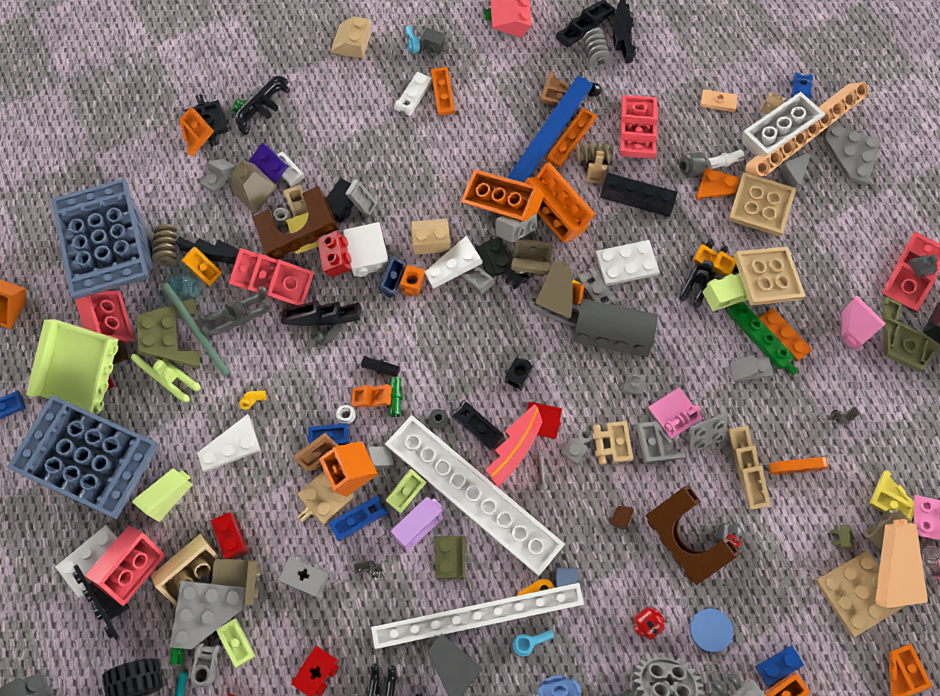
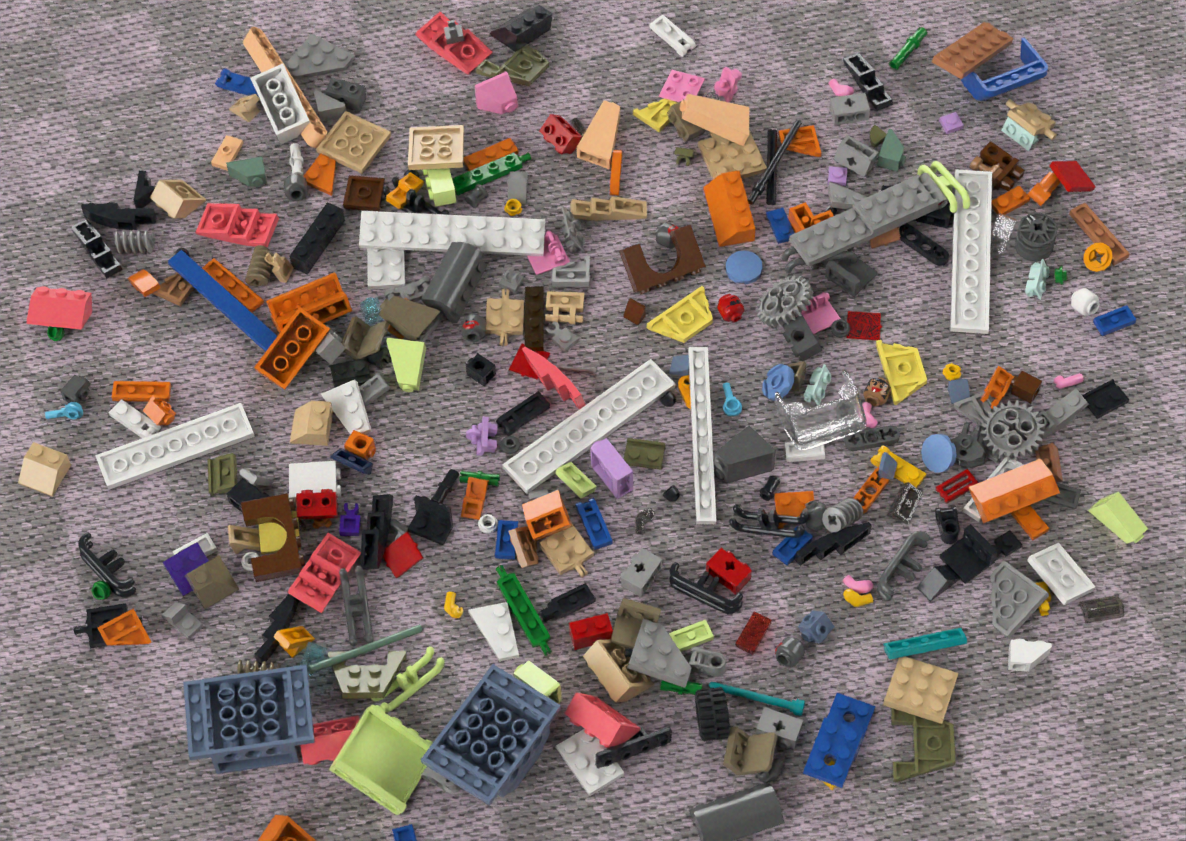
camera: 80 degrees left, 10 degrees down
(251, 466) = (523, 610): none -> green plate
(264, 509) = (568, 603): none -> black hinge
(283, 647) = (704, 595): none -> black piece
(299, 342) = (402, 555): none -> red piece
(330, 289) = (350, 522): none -> dark purple plate
(337, 360) = (431, 520): none -> black bracket
(368, 172) = (222, 473): none -> olive plate
(391, 131) = (174, 446): none -> white plate
(404, 593) = (671, 494): none -> black hinge
(421, 108) = (159, 411): none -> orange brick
(433, 393) = (480, 434): none -> lavender hips
(510, 302) = (407, 362): none -> yellowish green slope
(521, 571) = (668, 399): none -> black hinge
(555, 66) = (144, 282): none -> orange slope
(566, 357) = (473, 327): none -> dark grey head
(567, 255) = (370, 306): none -> clear light blue brick
(589, 385) = (504, 317): none -> tan plate
(593, 415) = (534, 318): none -> dark brown plate
(627, 573) = (684, 318): none -> light yellow wing
(652, 42) = (143, 190): none -> black slope
(655, 70) = (176, 198): none -> tan slope
(675, 322) = (438, 231): none -> white plate
(701, 122) = (248, 171): none -> sand green slope
(703, 225) = (364, 193): none -> reddish brown plate
(724, 364) = (513, 203): none -> yellow plate
(728, 329) = (476, 196): none -> dark grey bush
(783, 601) = (729, 209): none -> orange slope
(815, 184) = (349, 93): none -> dark grey brick
(821, 631) = (759, 187): none -> black bar
(829, 398) = (560, 134): none -> red brick
(843, 441) = (601, 135): none -> light nougat slope
(859, 642) = (771, 151): none -> black axle

